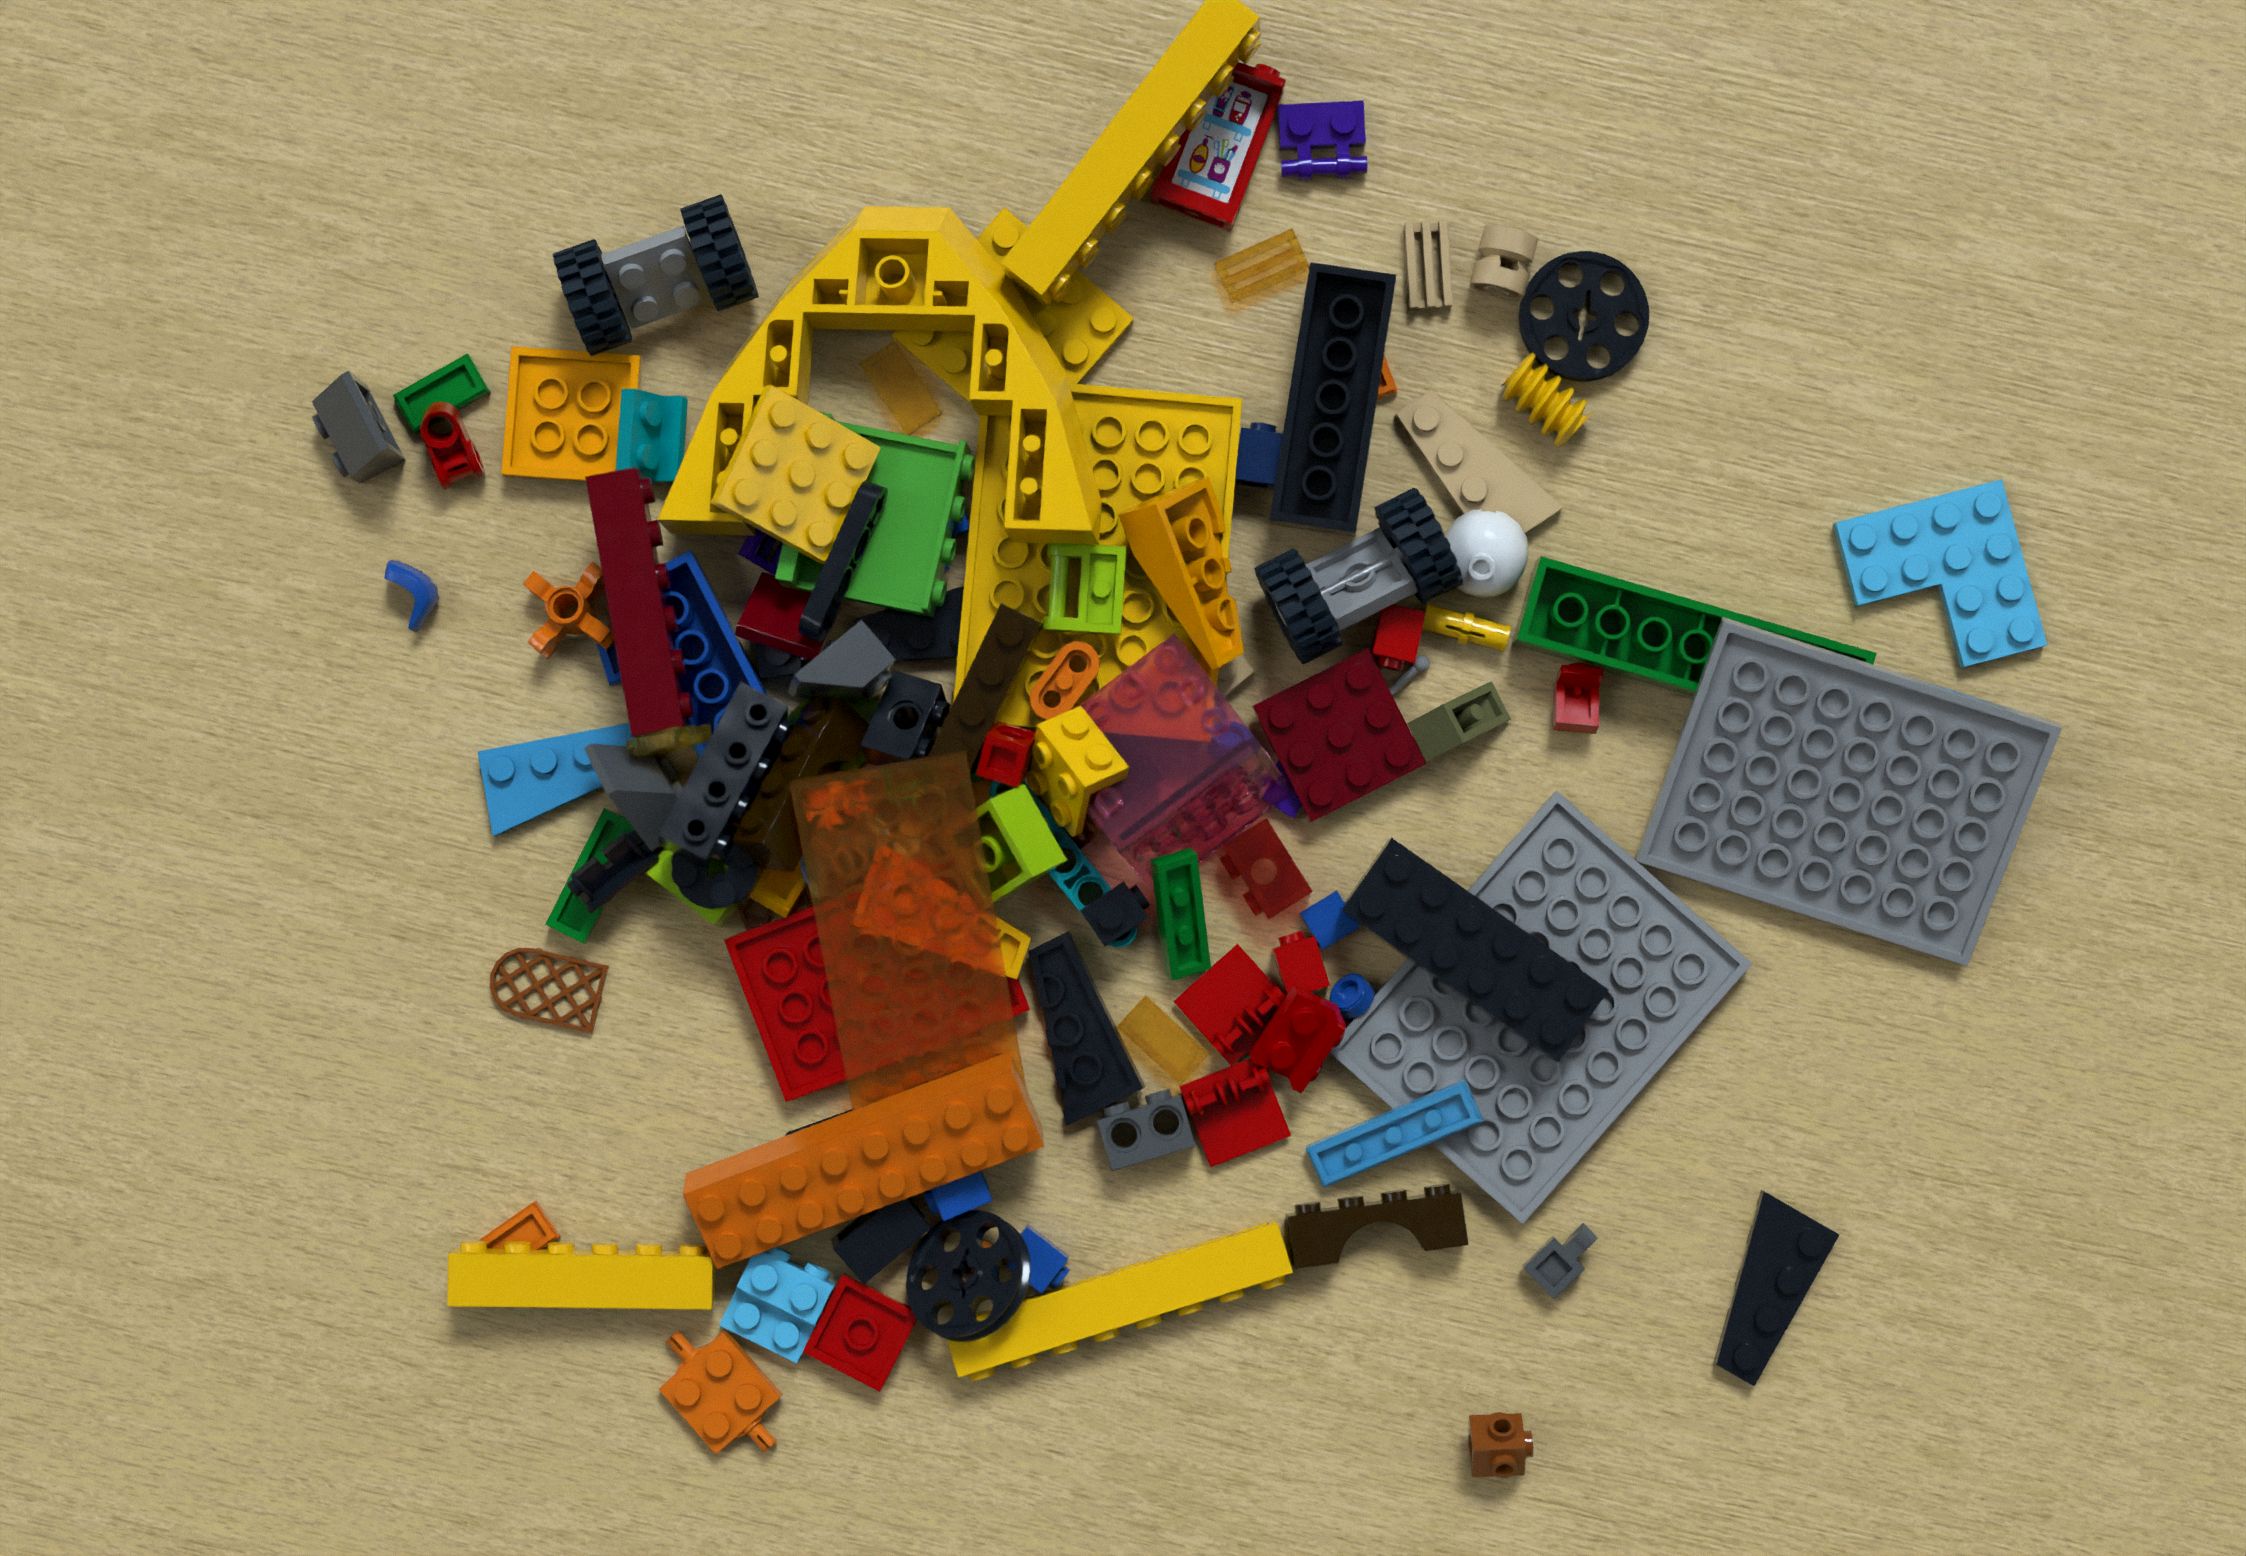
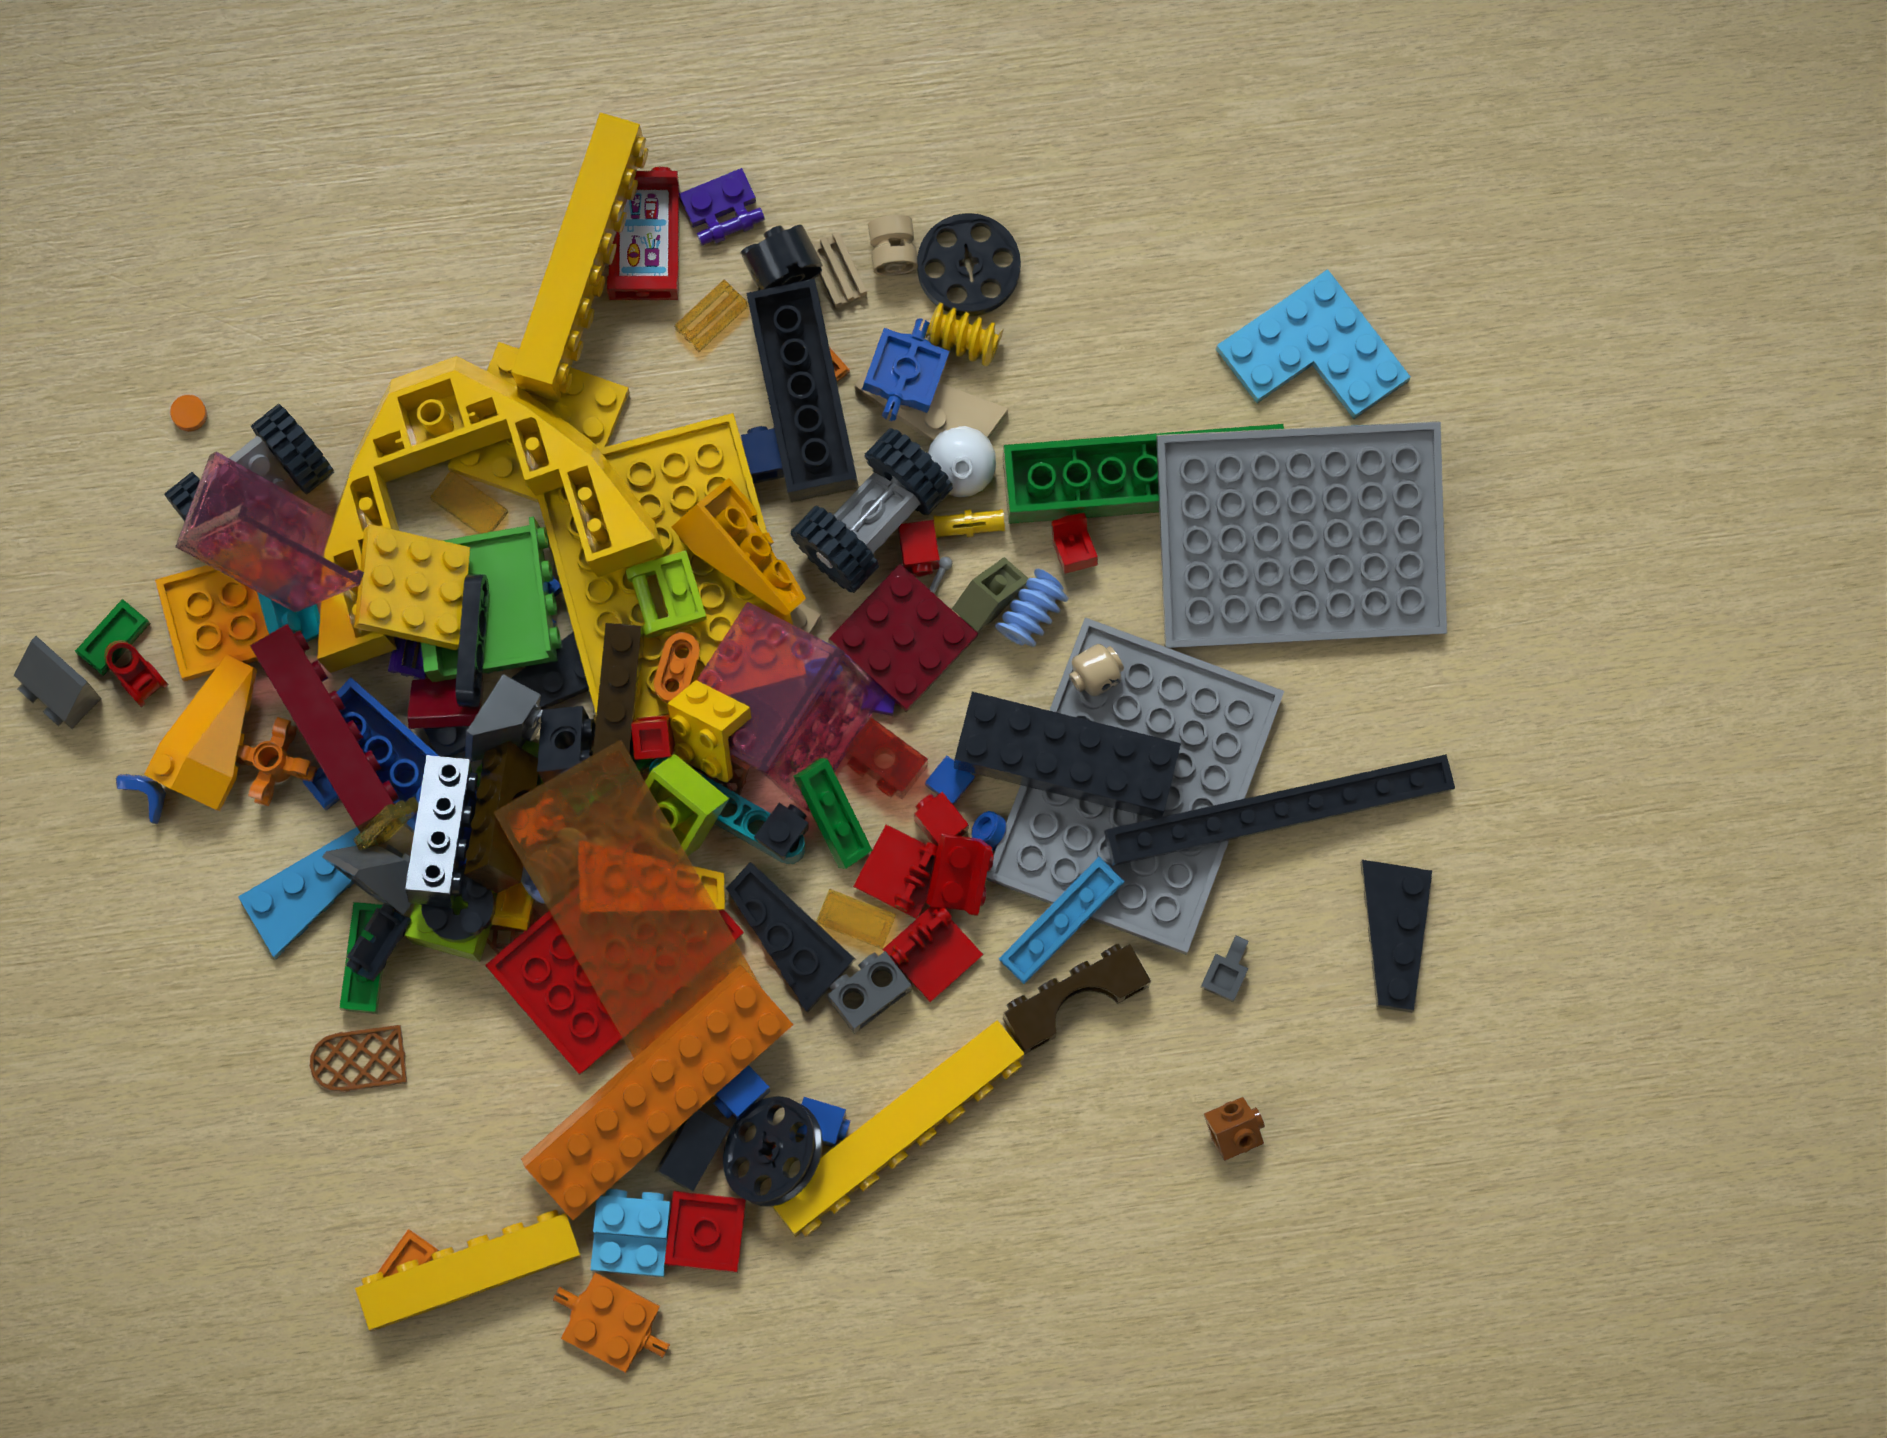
camera: 25 degrees left, 10 degrees down
(498, 561) = (203, 743): none -> light orange wedge
(619, 159) = (188, 413): none -> orange tile
(644, 349) = (262, 536): none -> clear pink bracket
(1368, 235) = (782, 258): none -> black brick
(1461, 420) = (905, 370): none -> blue plate
(1501, 758) = (1032, 608): none -> light blue piece
(1545, 861) = (1096, 670): none -> tan head
(1692, 1102) = (1279, 810): none -> black plate

